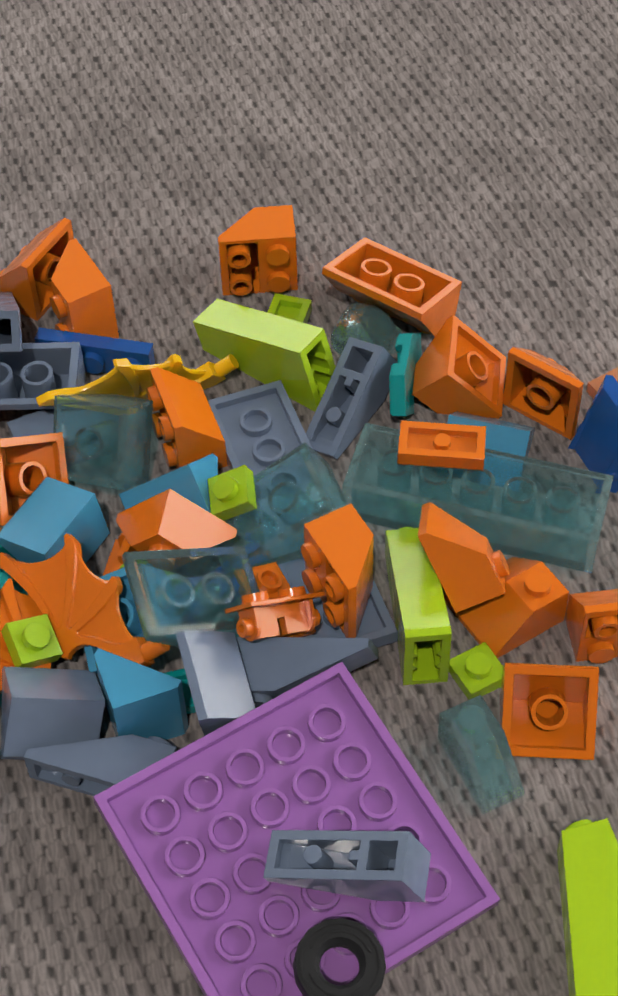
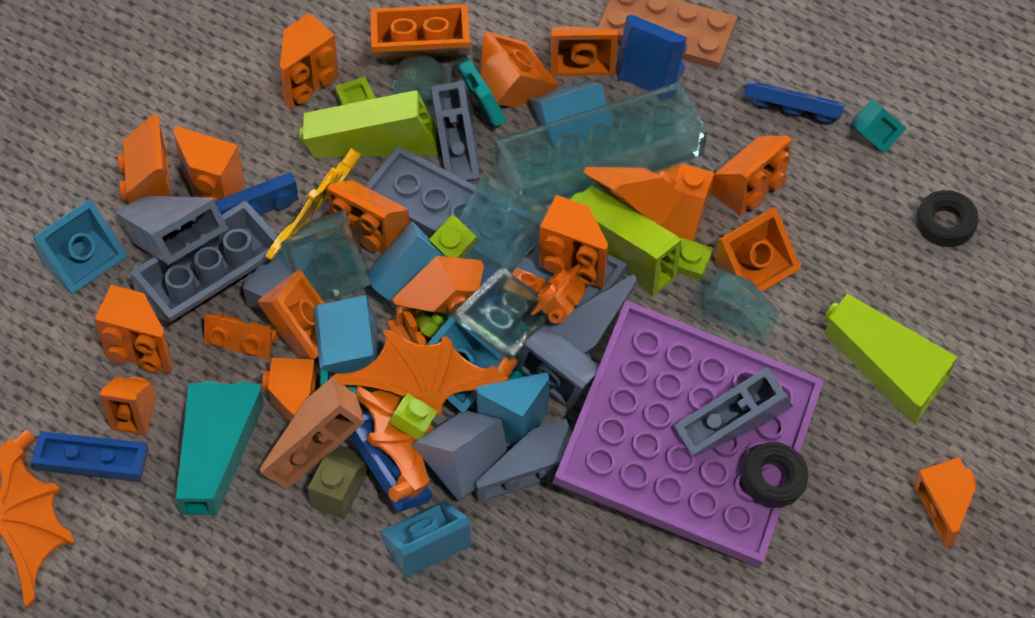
camera: 40 degrees left, 5 degrees up
(441, 445) = (564, 124): orange plate -> none

